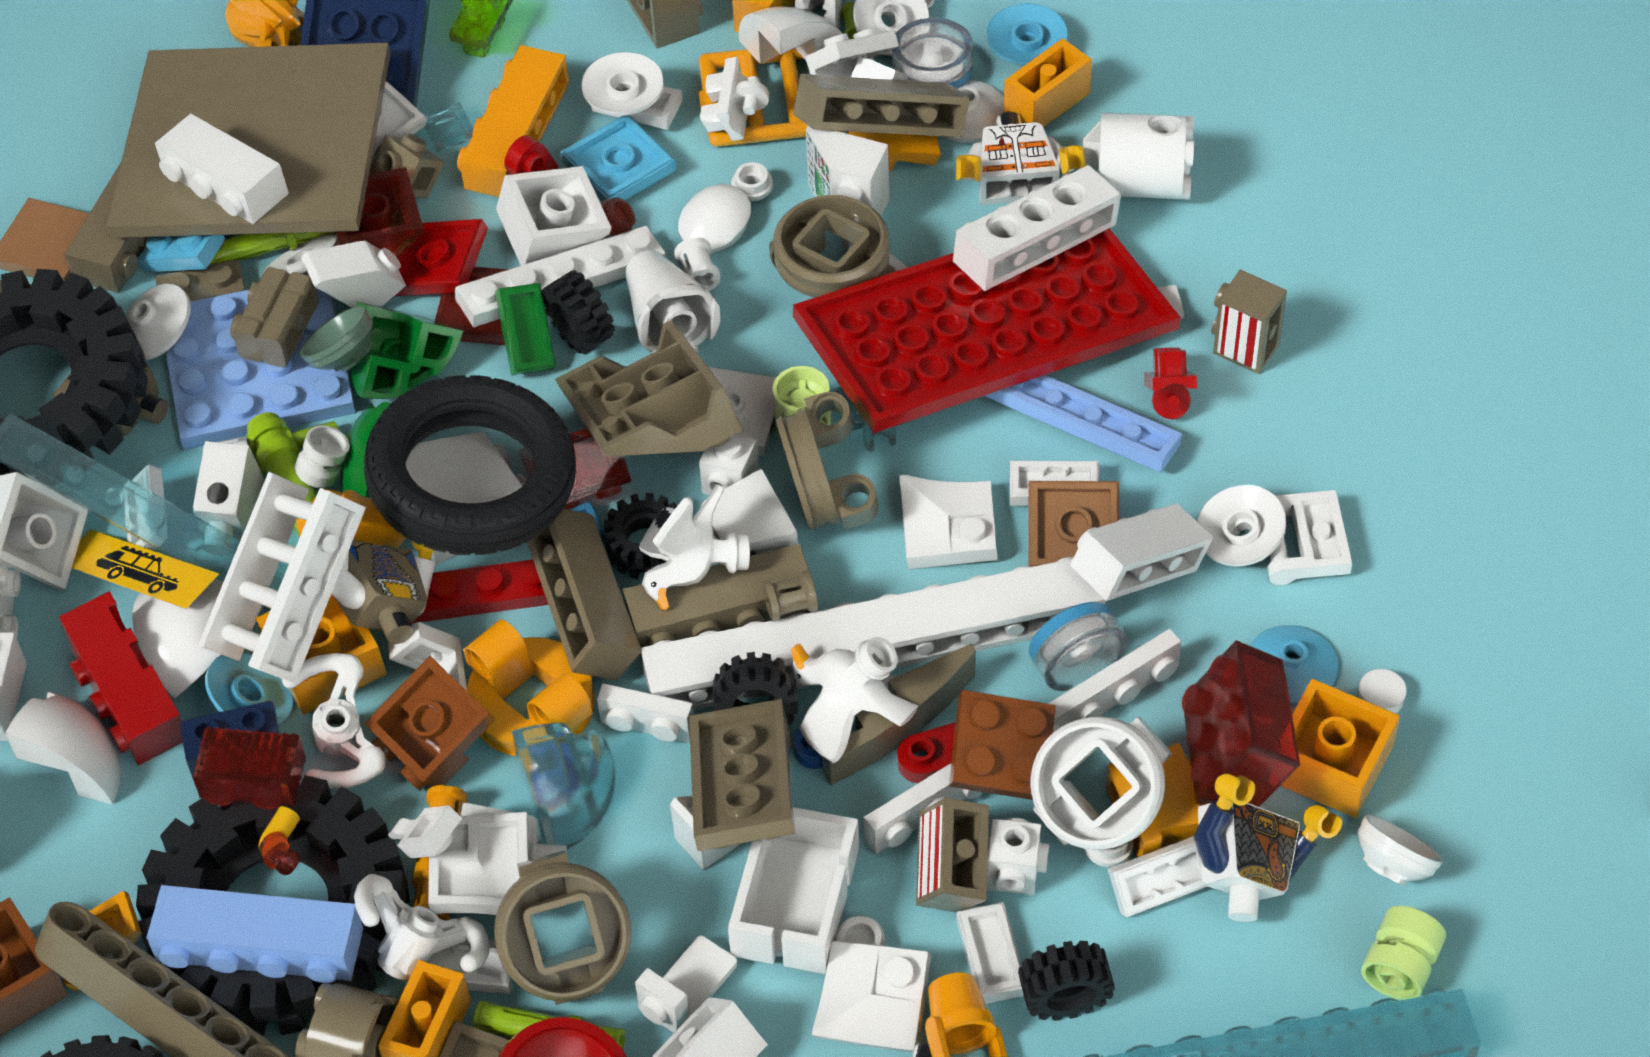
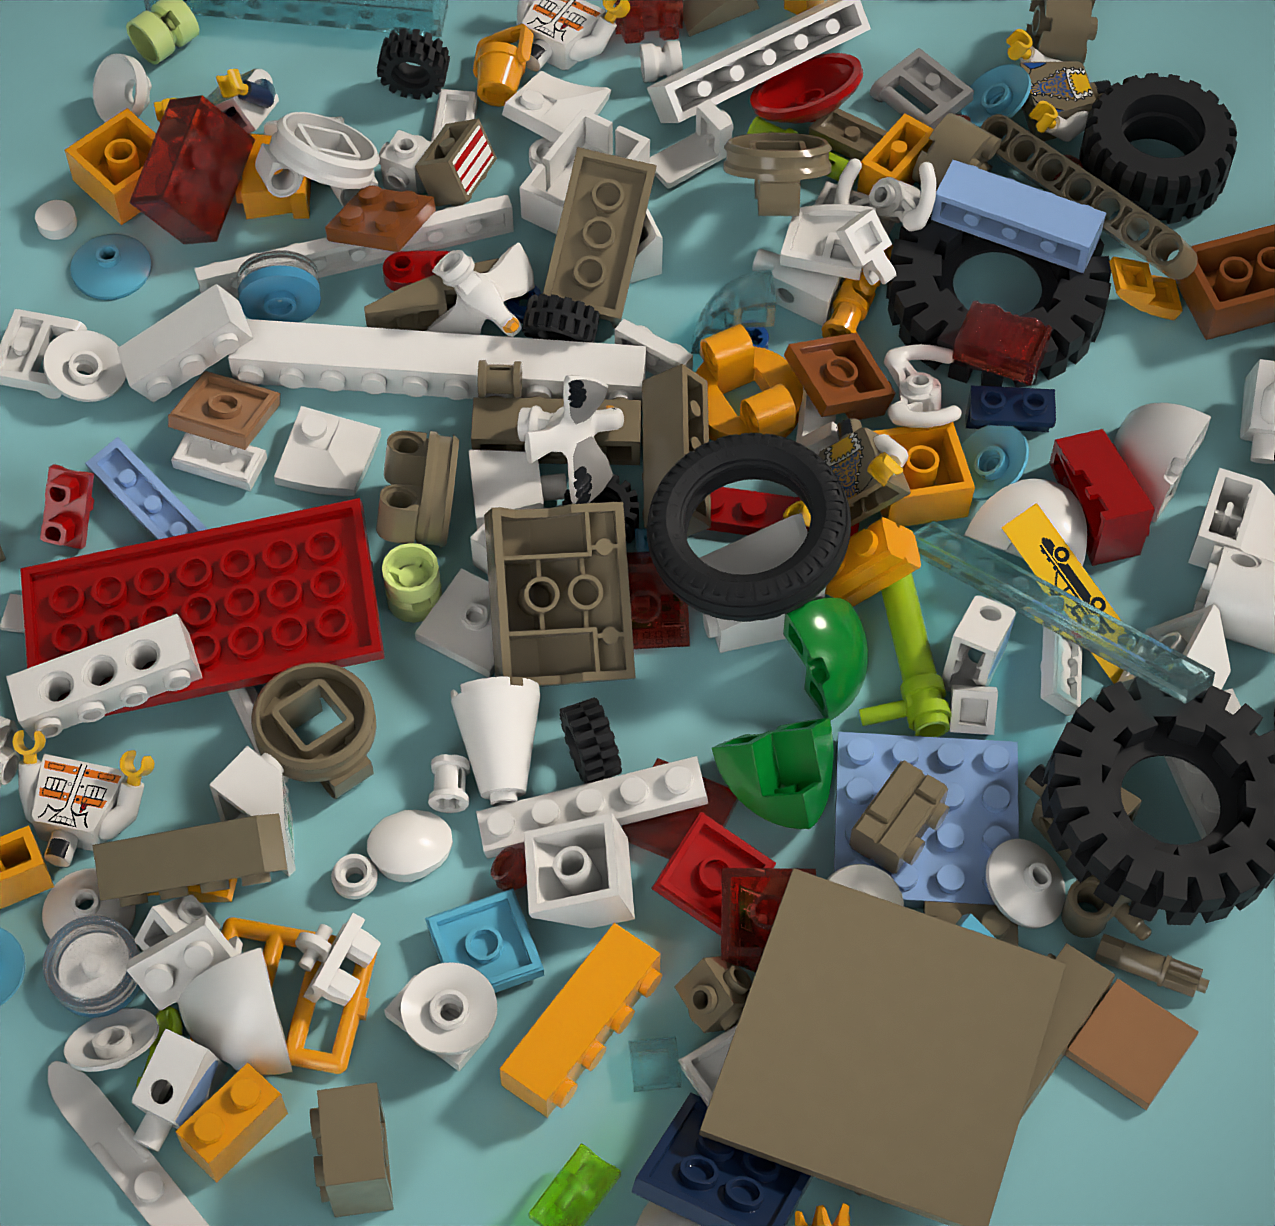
camera: 165 degrees left, 5 degrees up
(221, 169) = (929, 968): white brick -> none
(275, 844) = (990, 280): clear red arm -> none
(305, 586) = (918, 431): white fence -> none
(321, 456) = (882, 648): white wheel -> none
(339, 341) = (859, 762): sand green piece -> none
(355, 273) = (810, 842): white slope -> none
(525, 329) = (647, 743): green tile -> none
(528, 156) = (581, 933): red plate -> none

